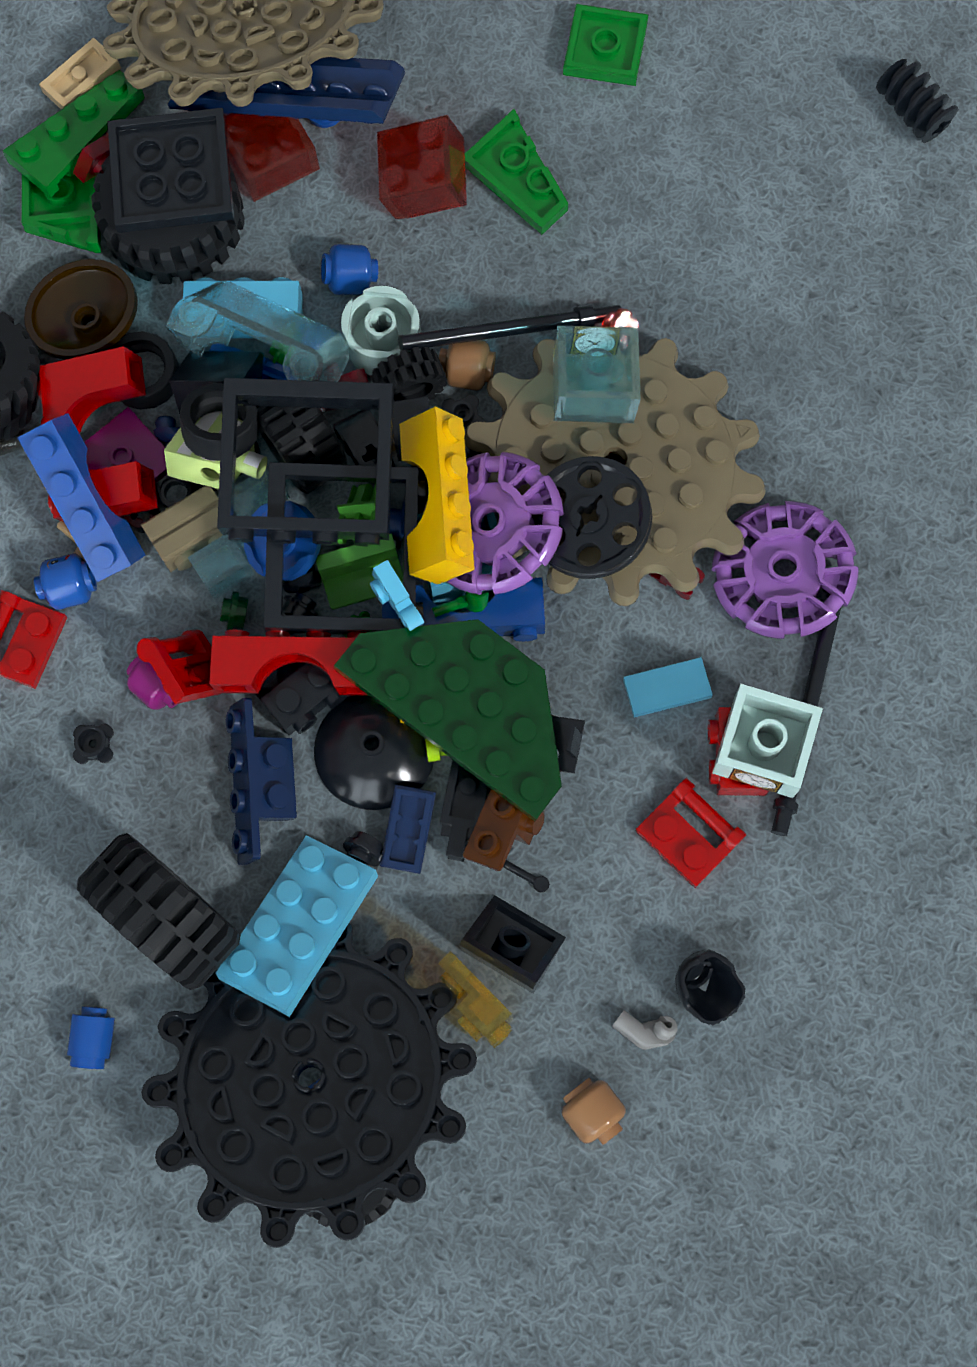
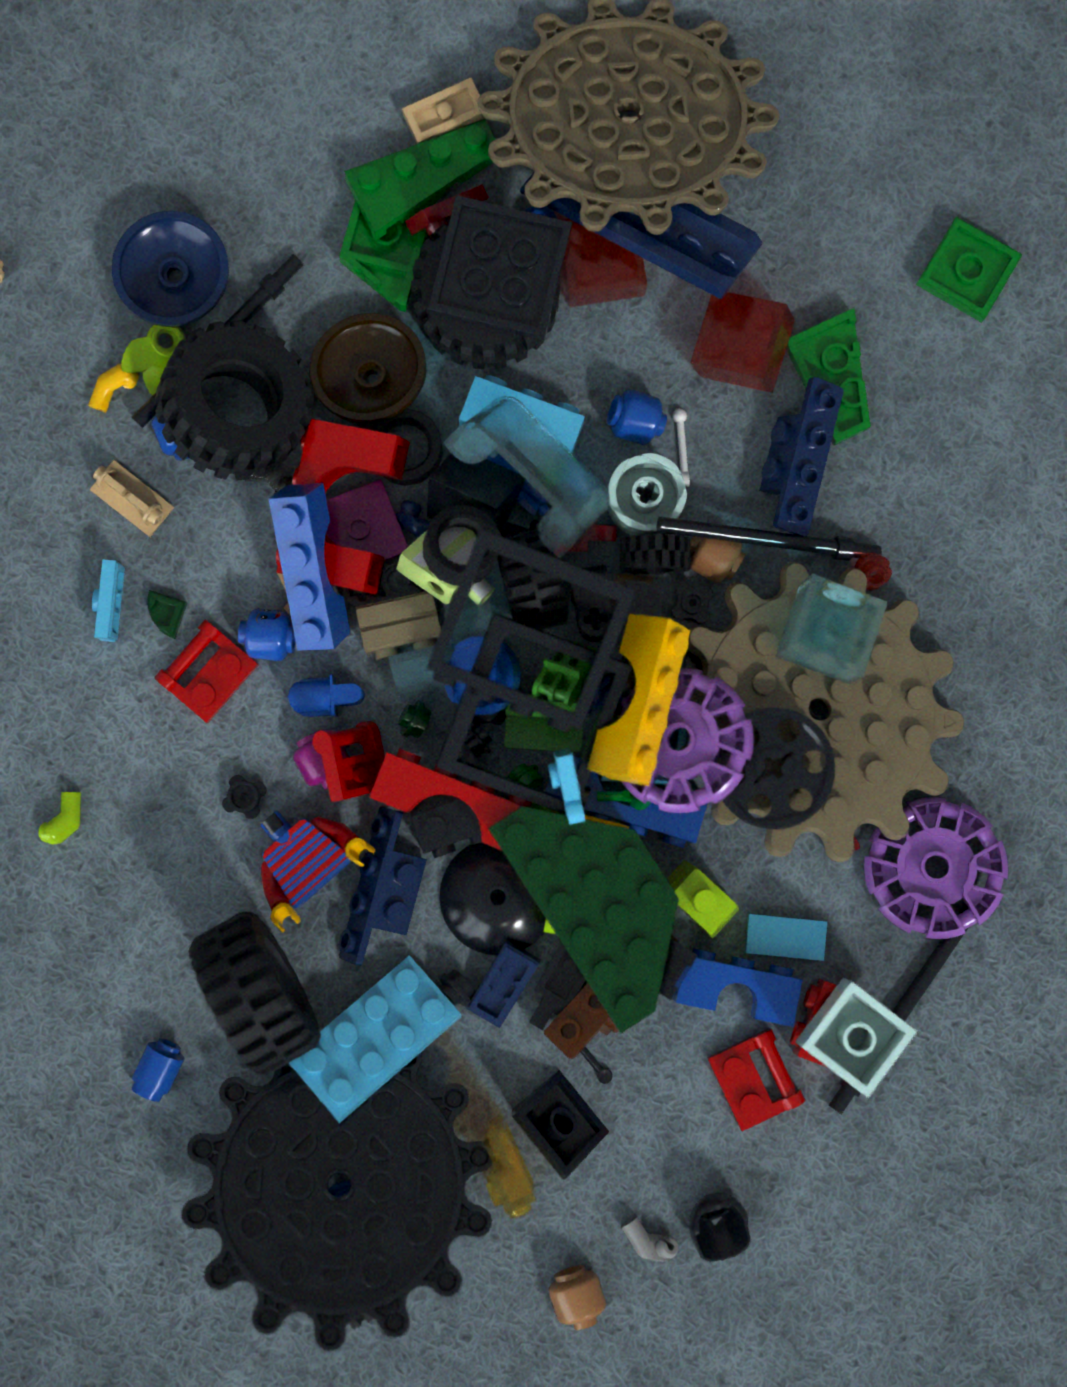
camera: 10 degrees right, 10 degrees up
(140, 619) = (322, 696): none -> blue arm
(171, 778) = (304, 860): none -> torso
(389, 258) = (680, 416): none -> white hinge
(512, 248) = (800, 456): none -> dark blue bracket
(574, 676) = (701, 899): none -> lime torso
(673, 739) = (773, 991): none -> blue arch

